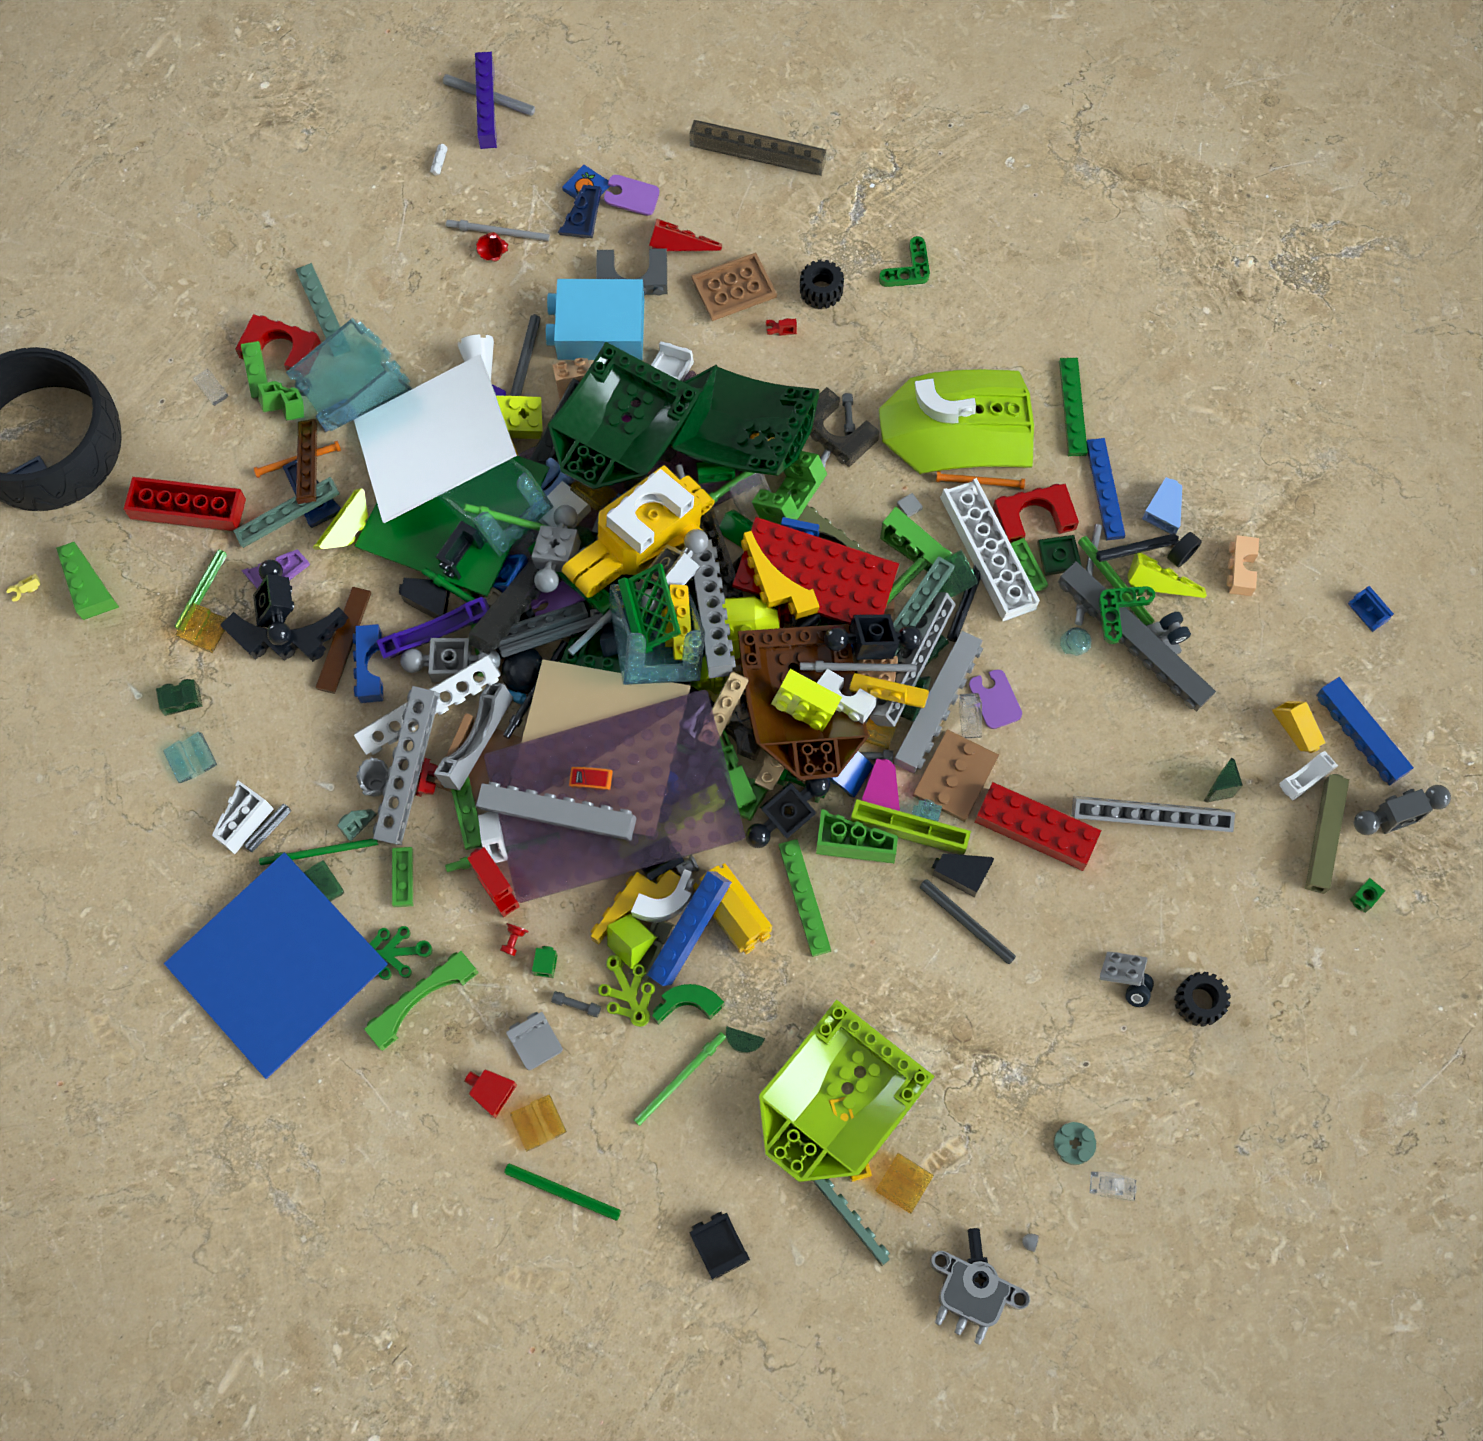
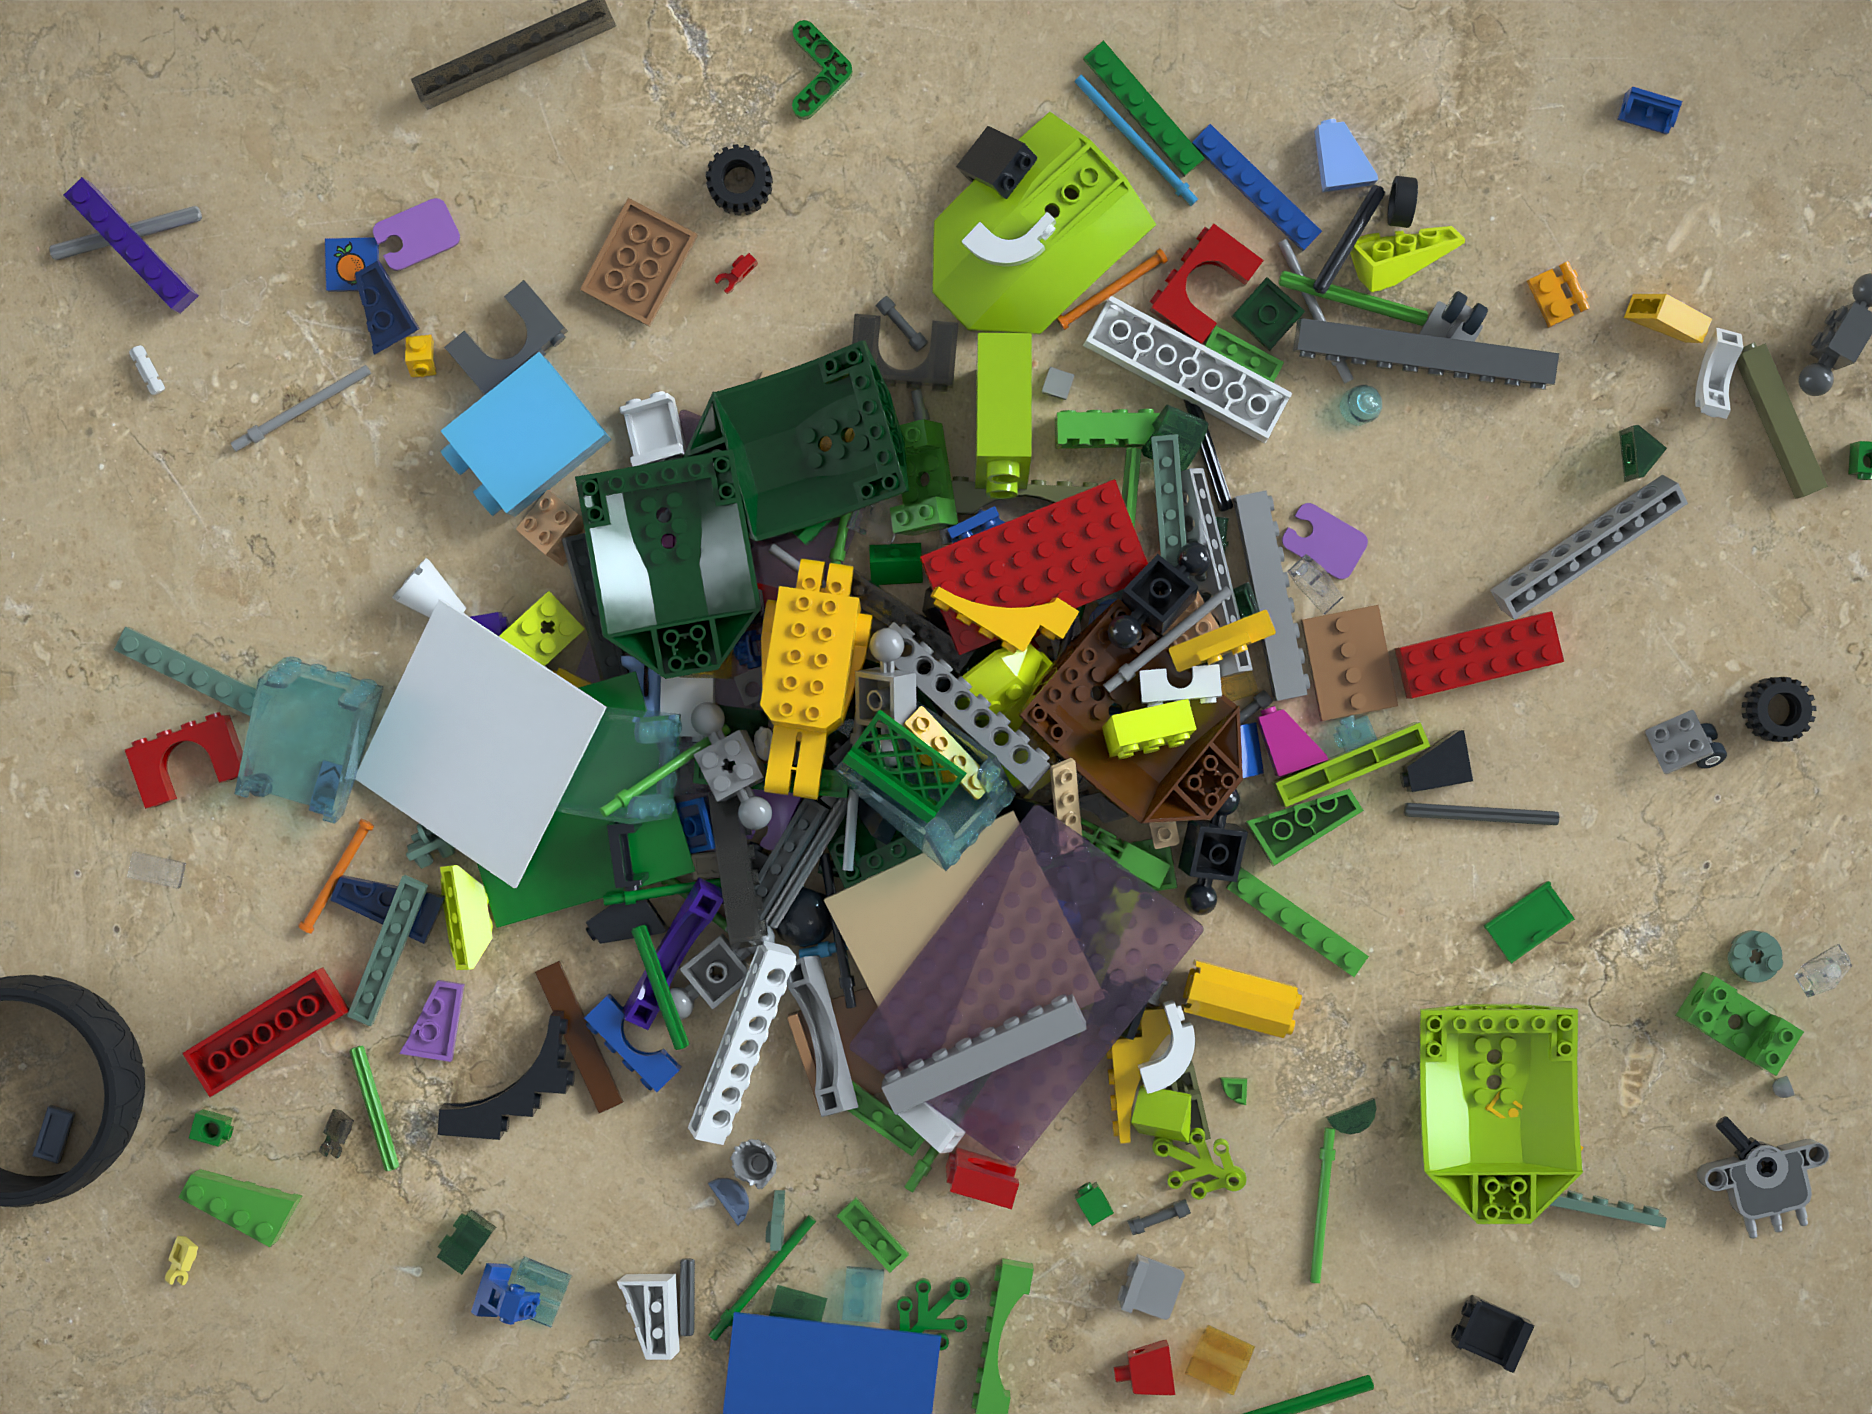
camera: 35 degrees left, 20 degrees up
(106, 525) = (200, 1130): none -> green brick
(170, 743) = (499, 1299): none -> blue tile
(171, 584) = (337, 1131): none -> clear smoke plate
(201, 628) = (416, 1148): clear yellow slope -> none
(254, 366) = (191, 813): bright green plate -> none
(273, 602) = (475, 1066): black brick -> none
(274, 397) = (244, 826): bright green brick -> none
(306, 461) = (355, 876): reddish brown tile -> none
(344, 794) = (732, 1196): none -> sand blue tile
(351, 479) = (424, 843): none -> sand green hips
(366, 906) = (863, 1294): none -> clear light blue plate
(410, 775) = (746, 1046): light grey brick -> none
(411, 638) = (660, 987): none -> green axle
(424, 786) = (797, 1105): red hips -> none
(491, 247) = (317, 439): red hair -> none
(515, 933) = (1038, 1195): red piece -> none
(525, 355) = (480, 551): dark grey axle -> none
(580, 248) = (420, 356): none -> yellow bracket
(590, 778) = (991, 993): slope -> none
(658, 489) = (804, 628): white arch -> none
(669, 236) = (518, 255): red wedge -> none
(688, 967) = (1235, 1088): none -> bright green tile
(689, 928) = (1218, 1060): blue brick -> none
(690, 995) = (1266, 1117): green arch -> none
(864, 481) = (1003, 413): none -> lime brick
(904, 1183) = (1620, 1129): clear yellow slope -> none
(946, 1006) = (1535, 915): none -> green door
(969, 368) = (997, 161): none -> black panel
(1025, 1151) = (1758, 1038): none -> bright green plate
(1062, 459) = (1180, 187): none -> dark azure bar
(1117, 602) = (1383, 333): green beam -> none
(1235, 666) = (1551, 298): none -> light orange plate
(1240, 579) = (1483, 186): light nougat arch -> none
(1364, 731) = (1740, 268): blue brick -> none

